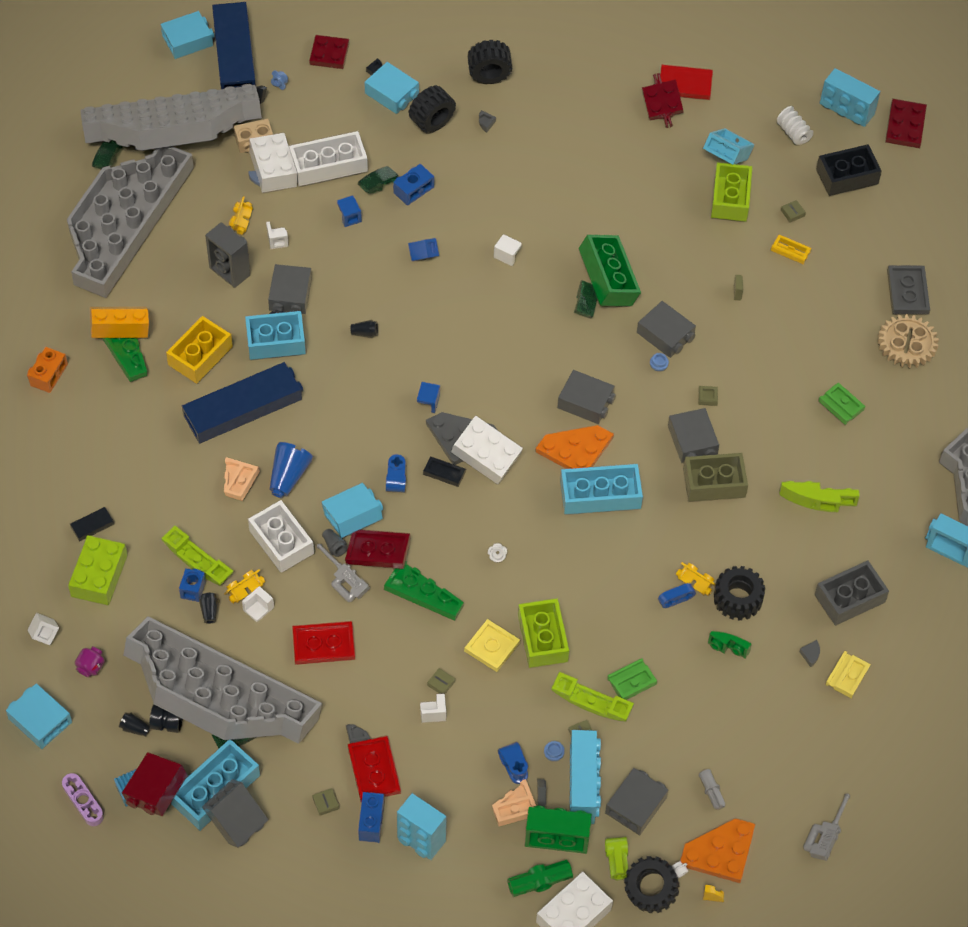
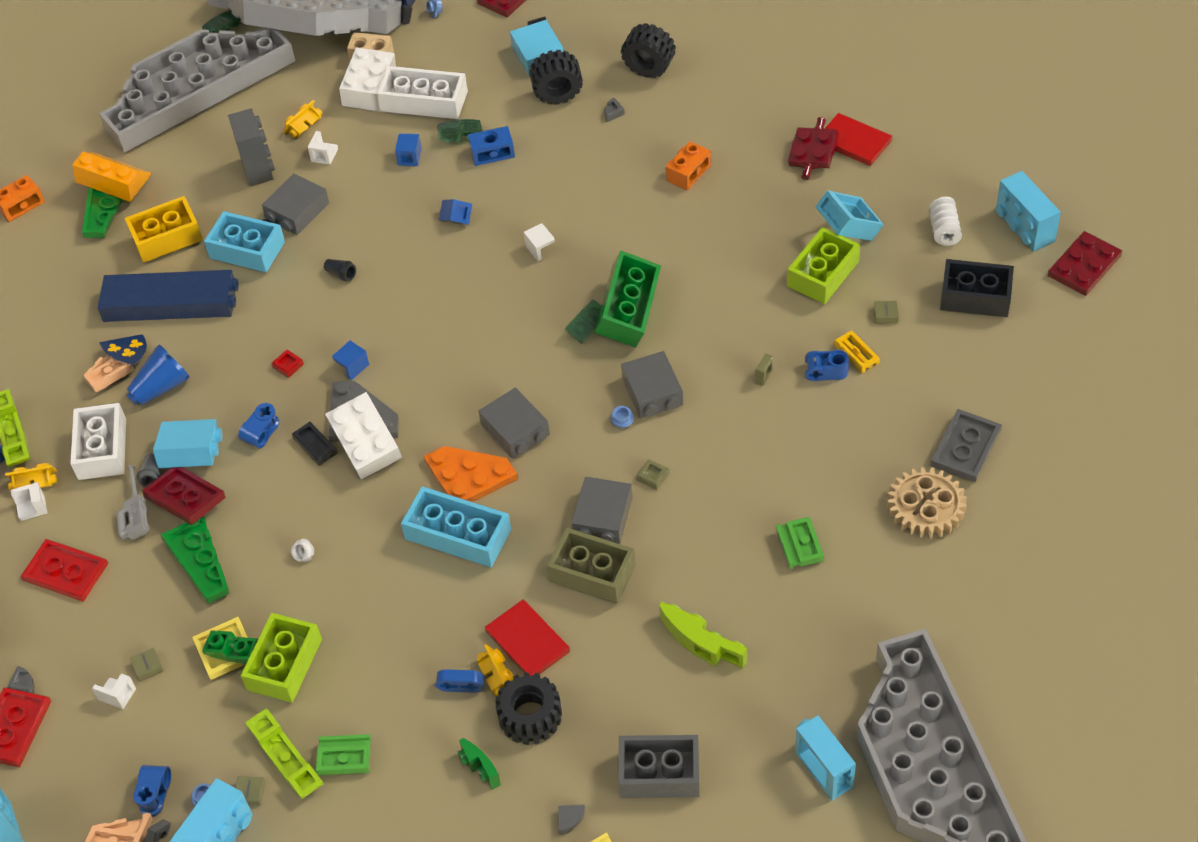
camera: 35 degrees right, 5 degrees down
(241, 457) = (126, 349): none -> dark blue sticker
(377, 419) = (287, 363): none -> red tile
(502, 642) = (228, 647): none -> green slope
(578, 147) = (688, 165): none -> orange brick
(701, 547) = (527, 639): none -> red tile
(779, 267) = (828, 364): none -> blue piece

